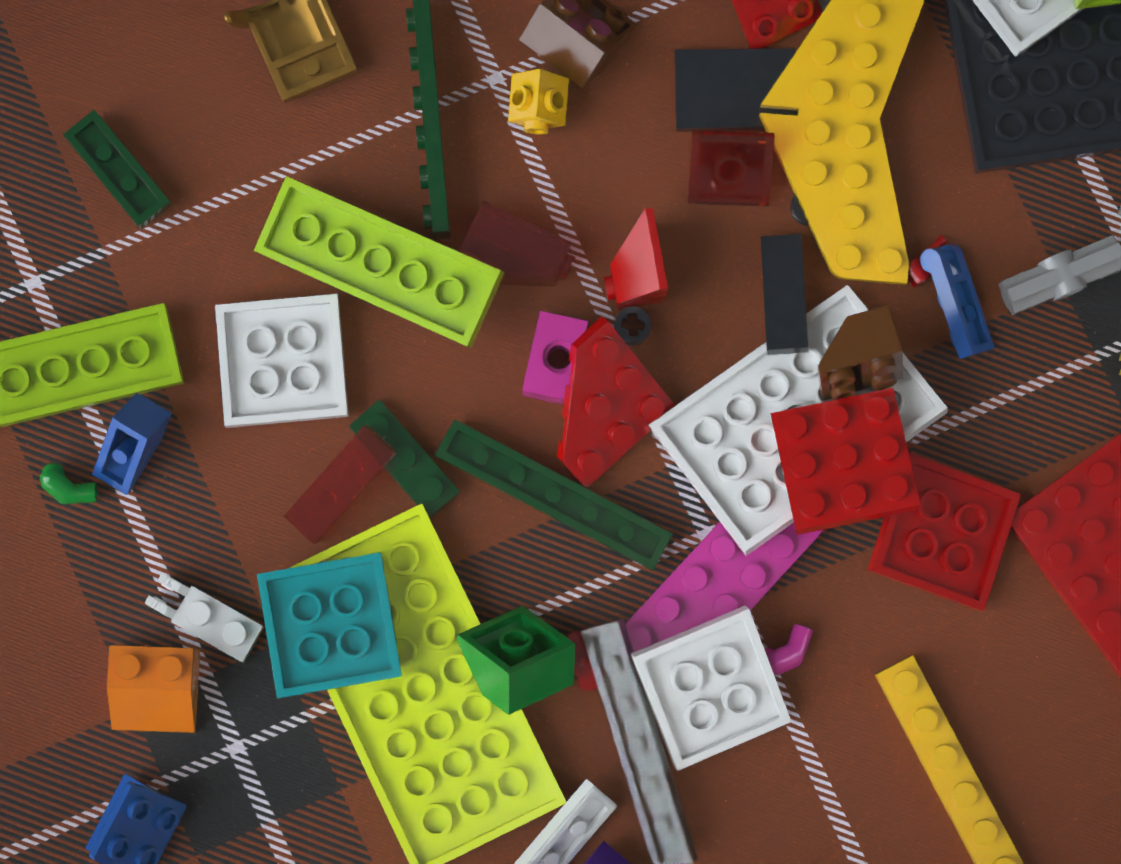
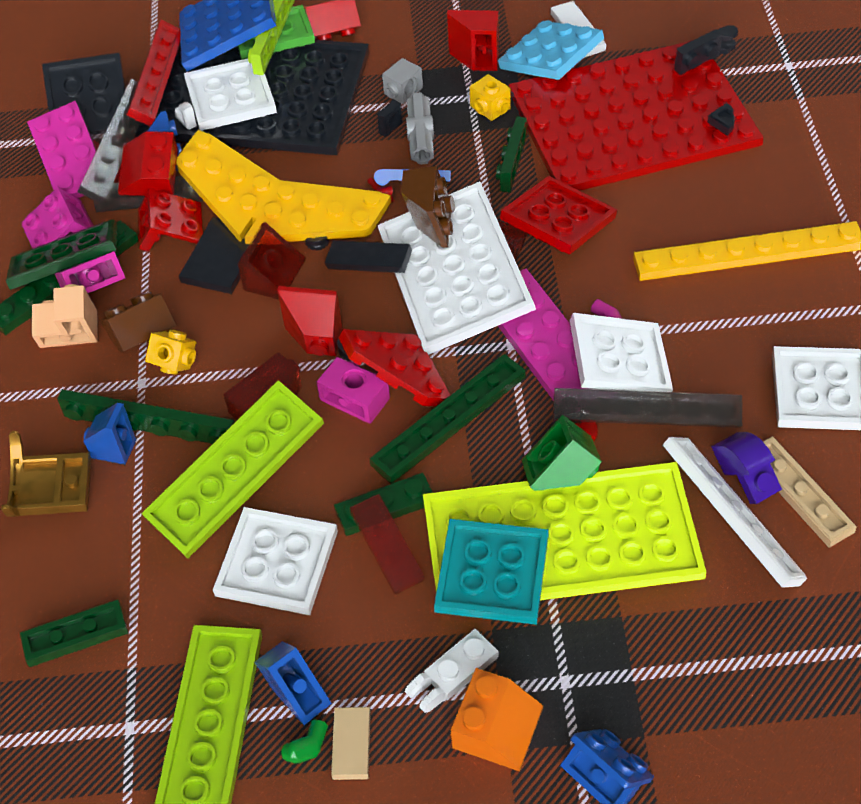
camera: 65 degrees left, 30 degrees down
(84, 535) = (351, 743): none -> tan tile
(383, 84) = (110, 435): none -> blue slope
(845, 461) = (493, 236): red plate -> none
(1049, 427) = (512, 154): none -> dark green plate
(1067, 224) = (389, 118): none -> black tile

